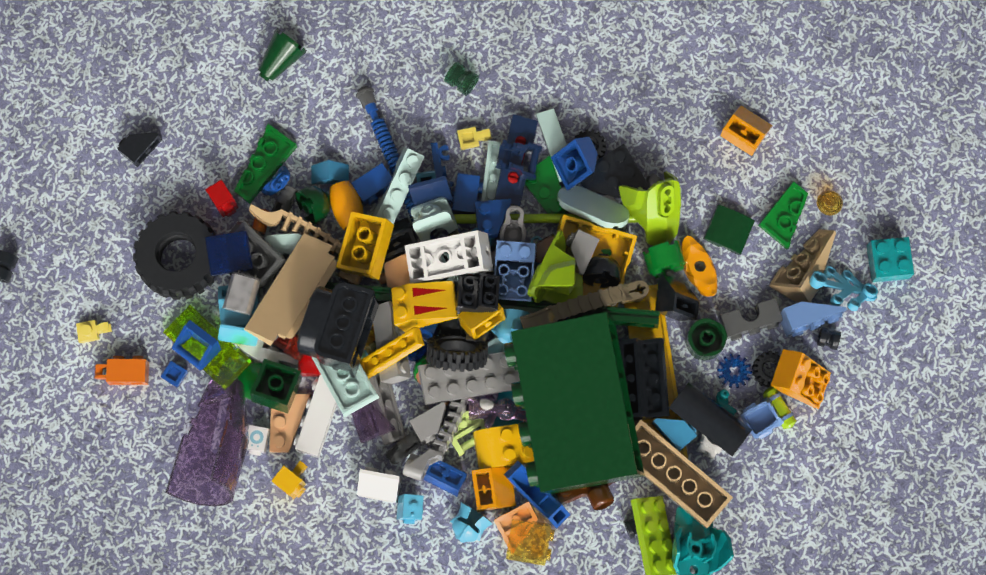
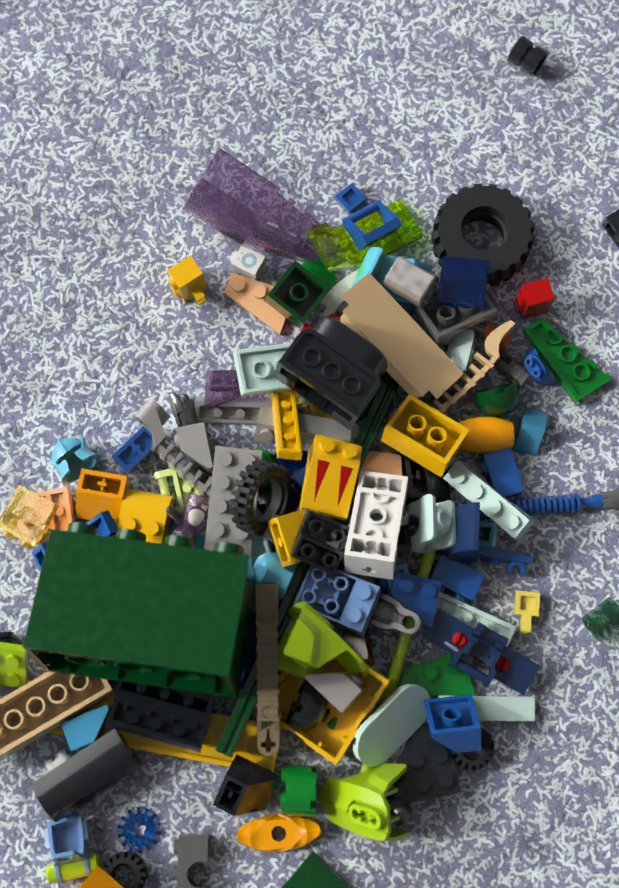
camera: 110 degrees right, 0 degrees up
(90, 331) = (427, 129): light yellow plate -> none
(124, 371) = (370, 149): orange brick -> none
(317, 421) = (242, 326): white brick -> none
(379, 485) = (151, 374): white slope -> none
(409, 508) = (113, 399): medium azure head -> none
(710, 329) = (175, 817): dark green brick -> none
(722, 399) = (104, 800): teal arm -> none

